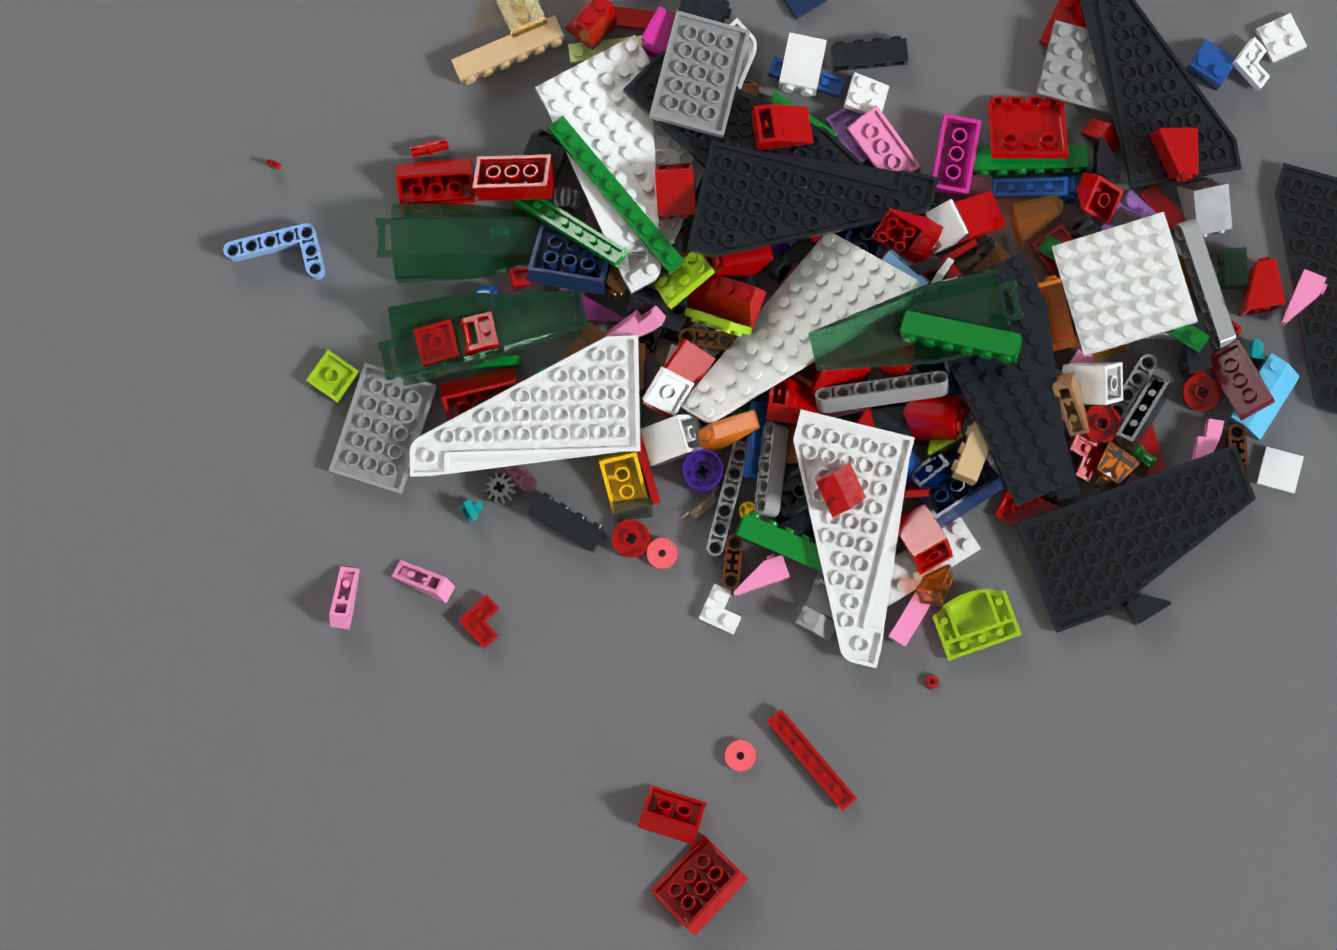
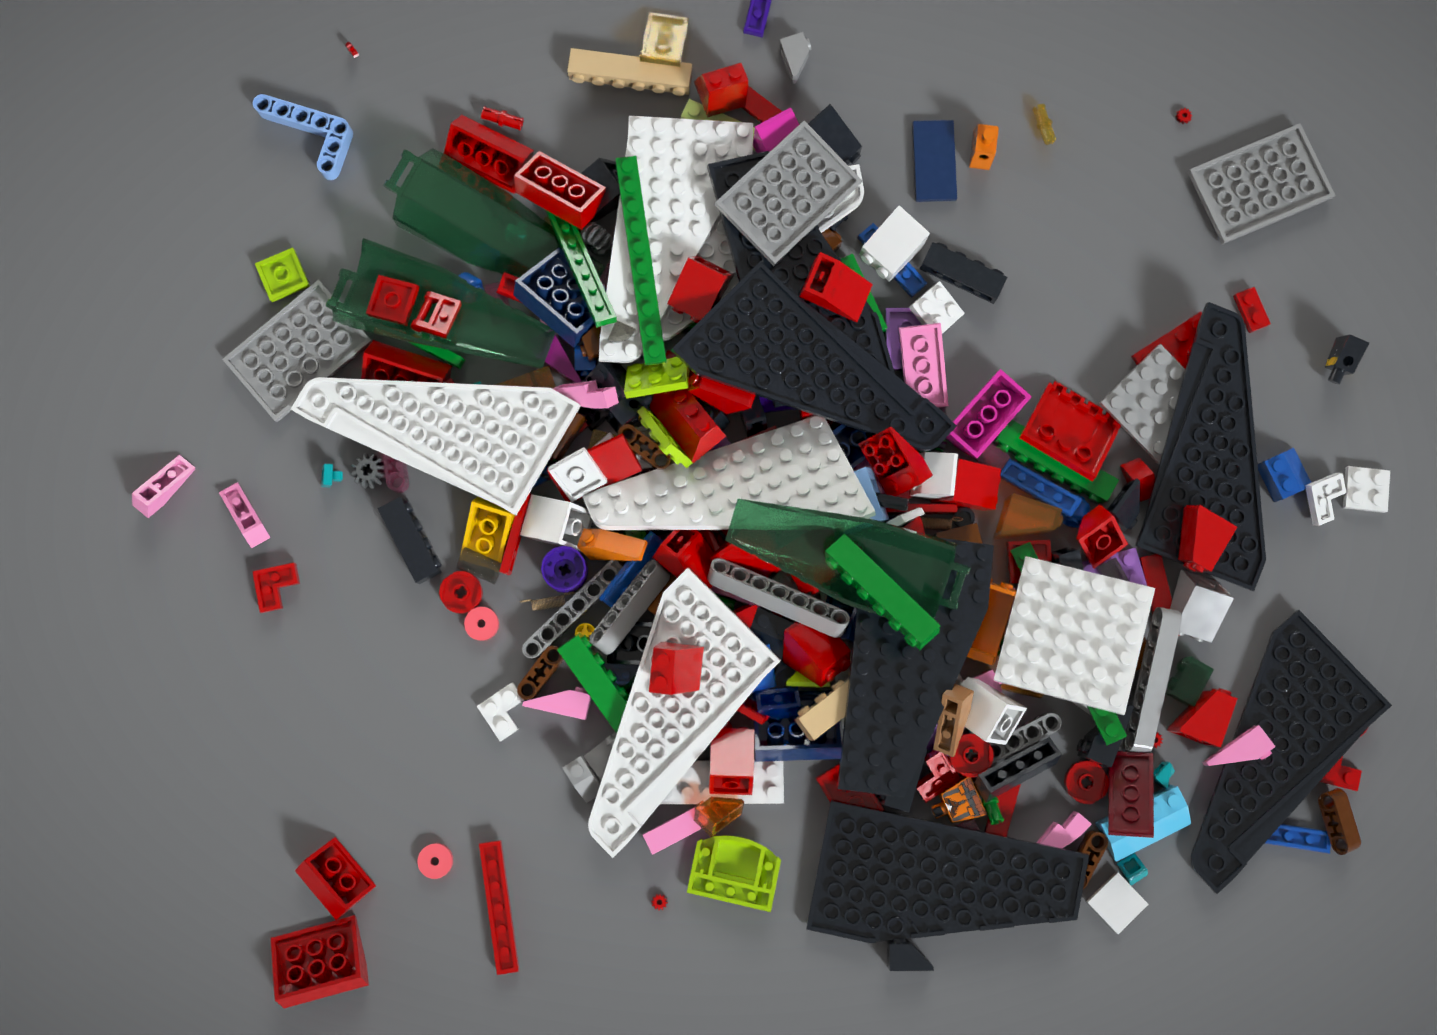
camera: 25 degrees right, 0 degrees up
(616, 304) = (582, 365): none -> blue brick
(1276, 437) = (1132, 868): none -> teal slope

